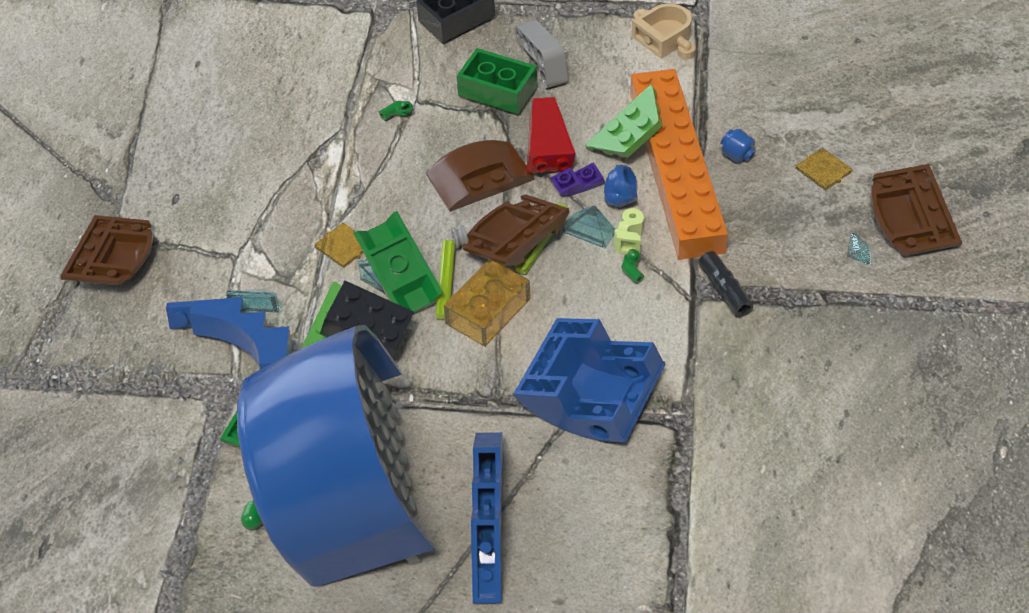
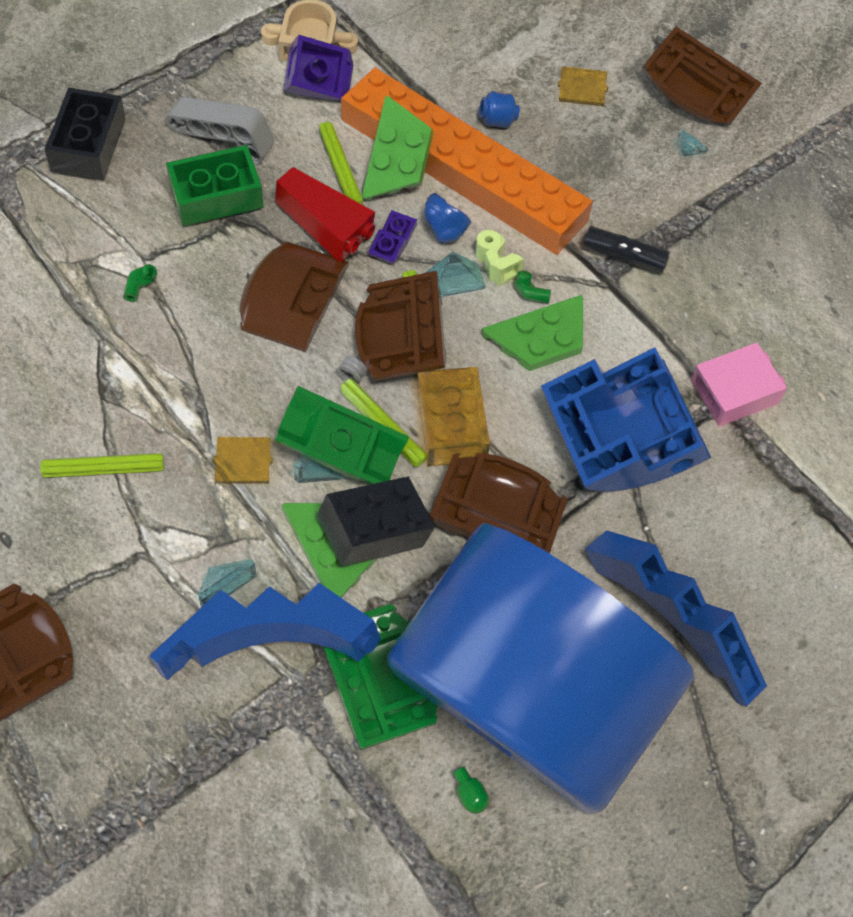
camera: 50 degrees left, 10 degrees up
(264, 194) = (102, 465): none -> lime axle
(454, 370) = (498, 494): none -> reddish brown slope
(594, 118) = (339, 162): none -> lime axle
(608, 298) = (542, 334): none -> bright green wing
(641, 50) = (318, 69): none -> dark purple slope
(703, 415) = (738, 384): none -> bright pink brick

